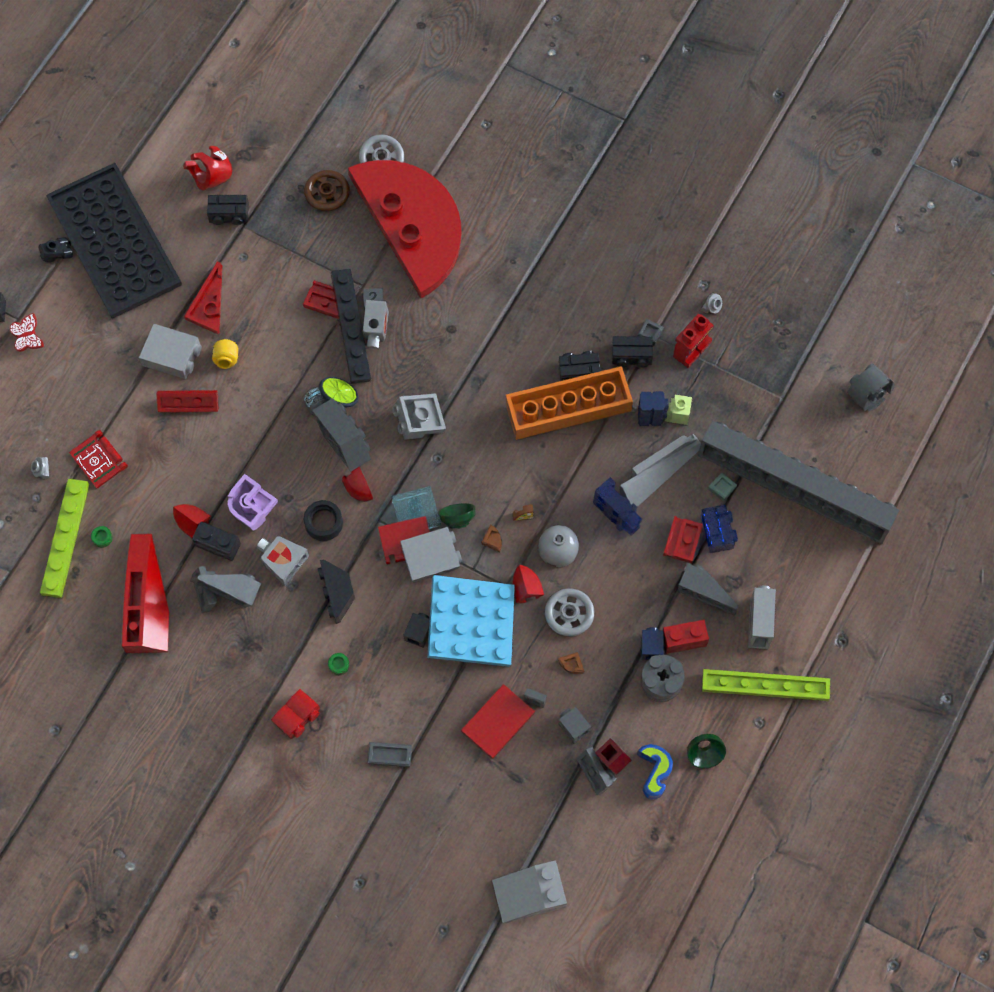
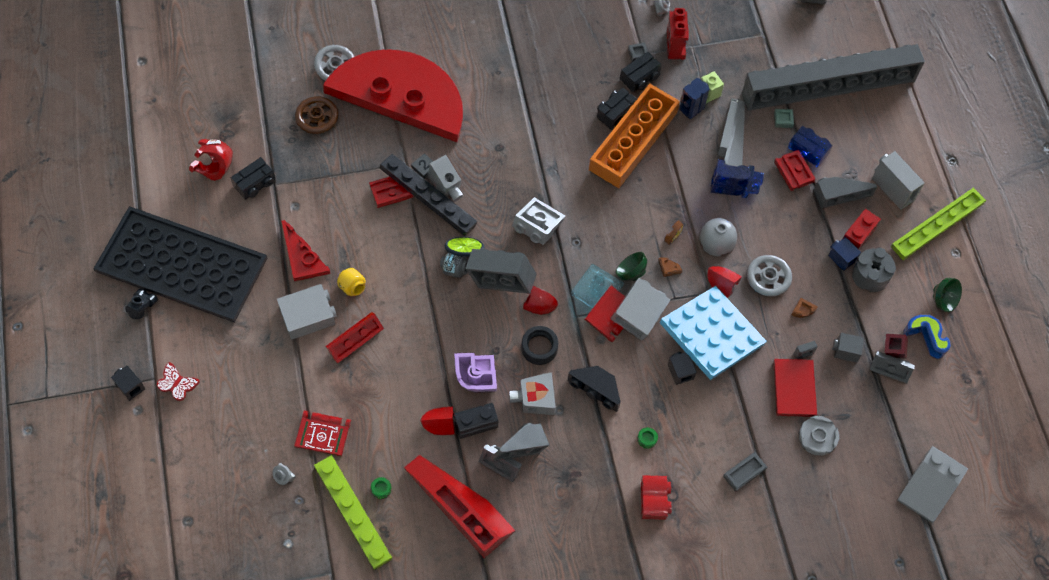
camera: 45 degrees left, 5 degrees down
(478, 776) = (818, 435): none -> light grey tile

